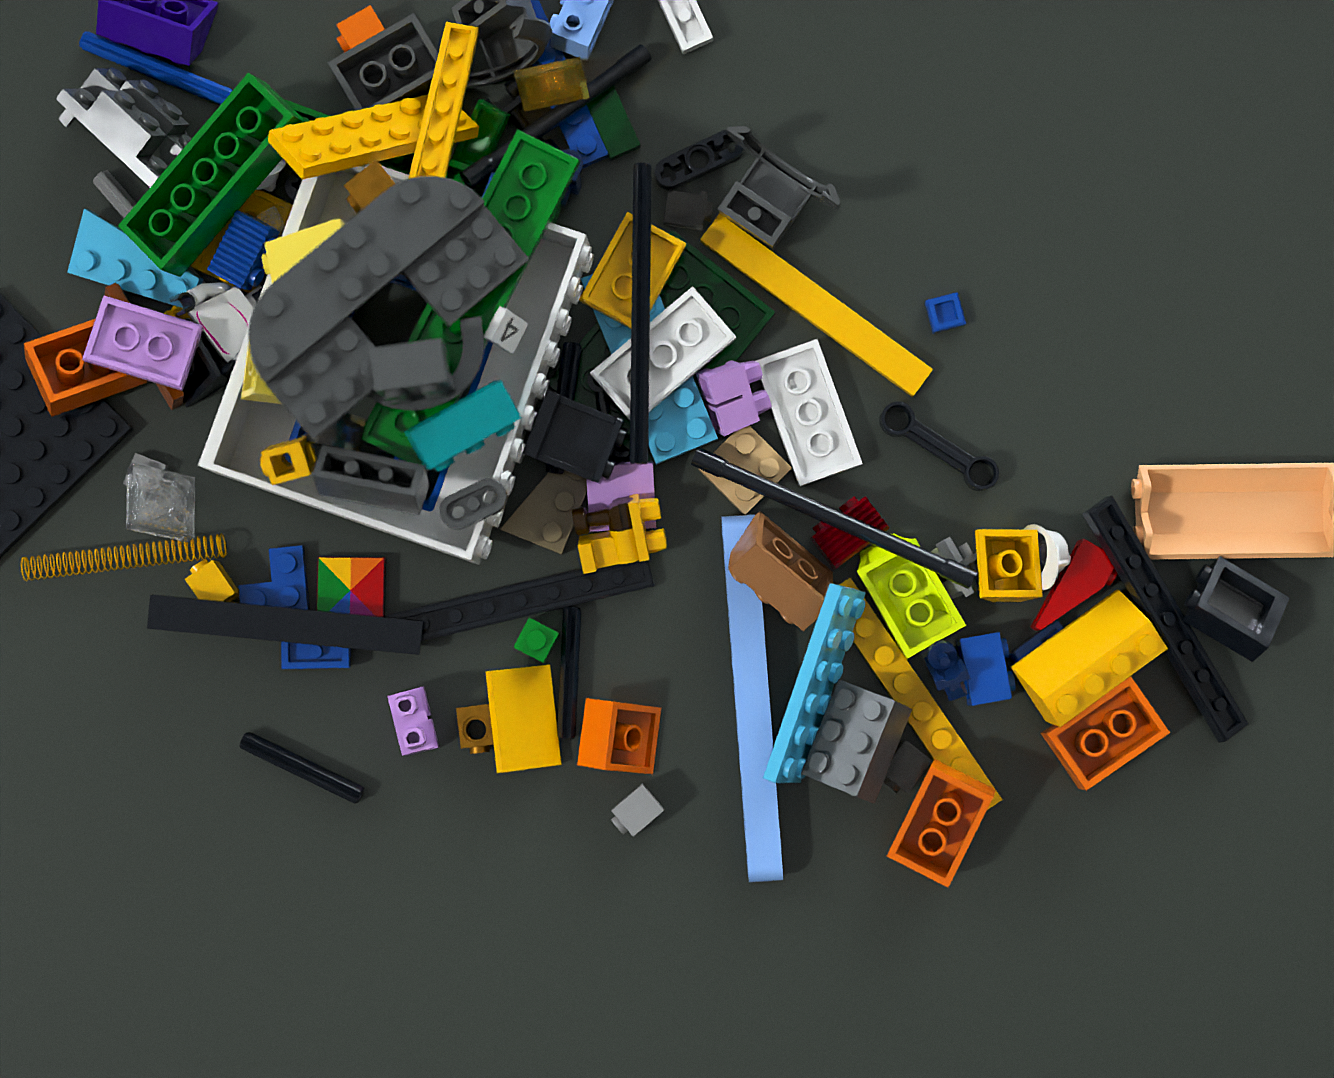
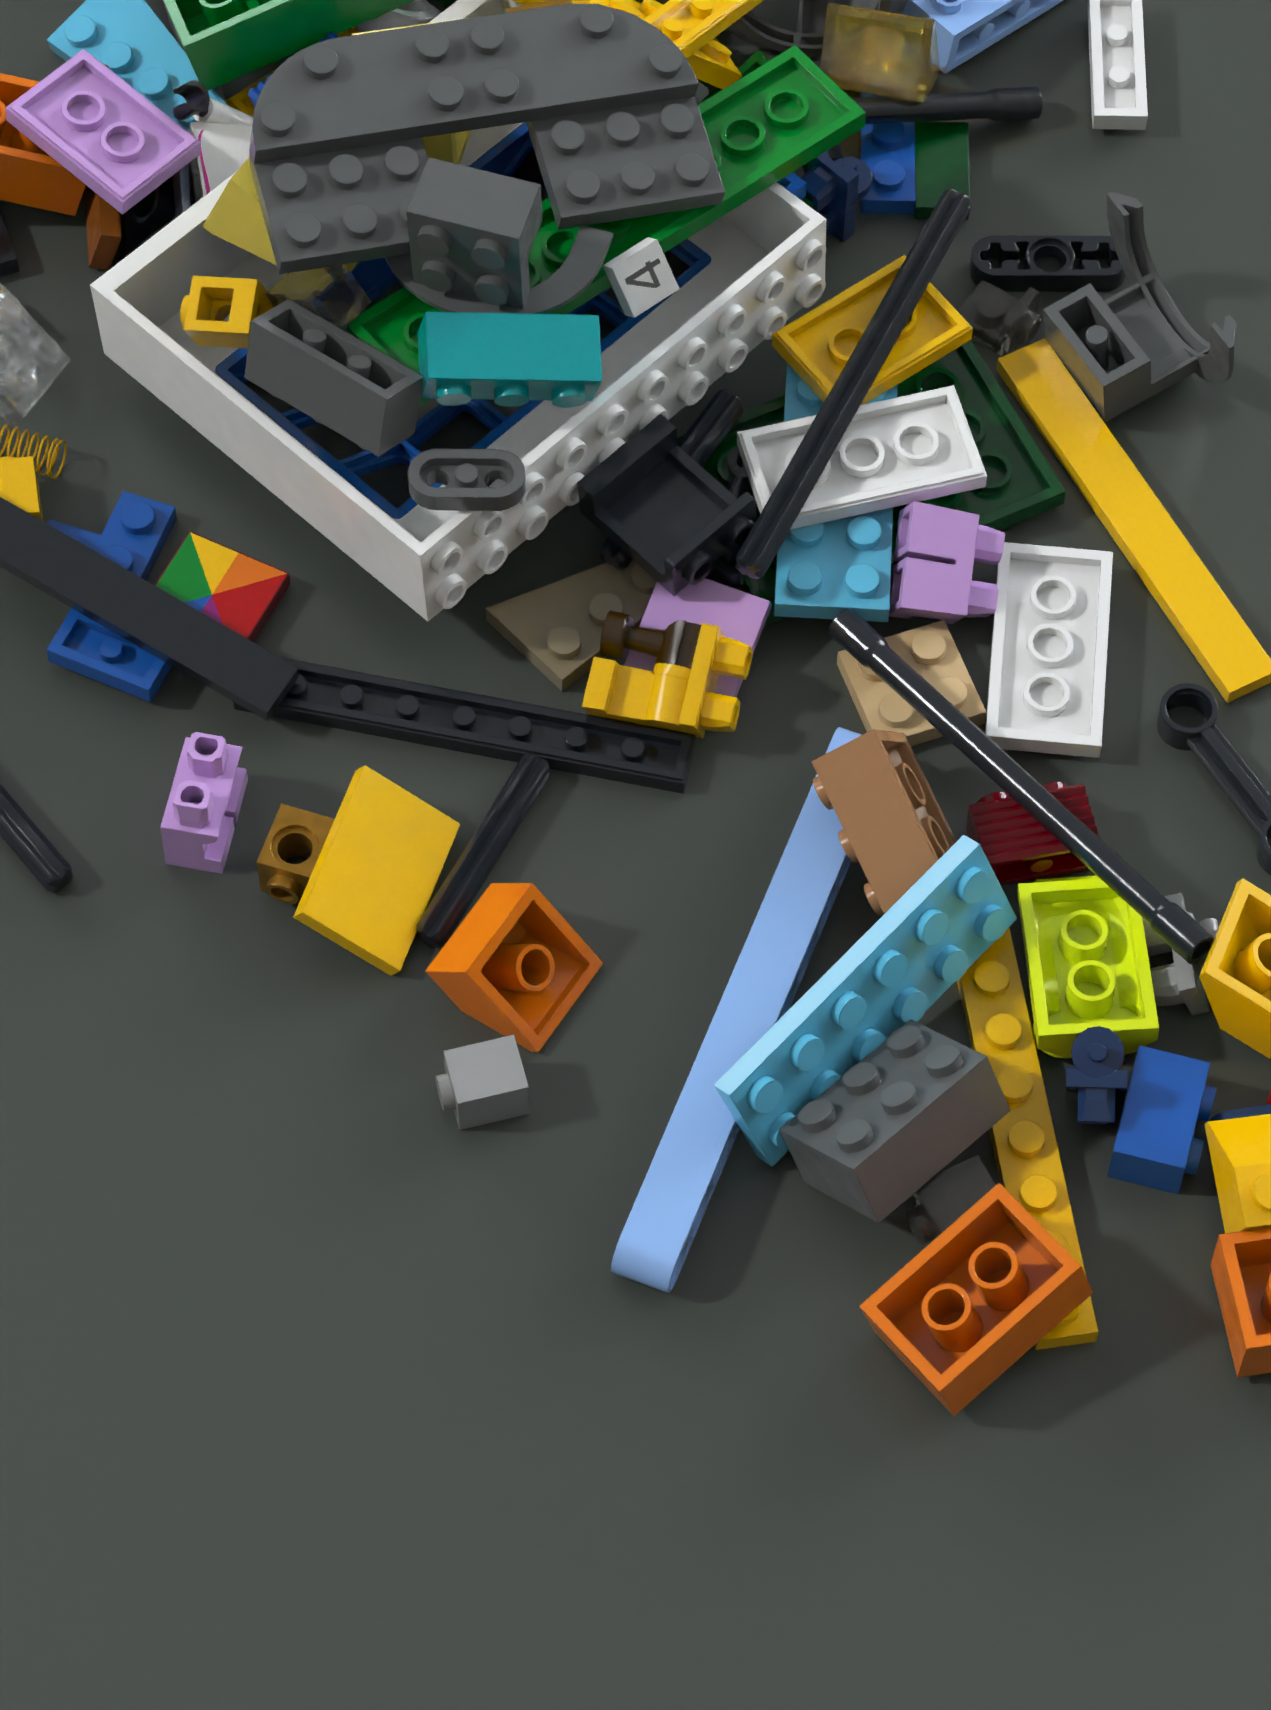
camera: 25 degrees right, 25 degrees down
(537, 640) = (459, 774): green brick -> none

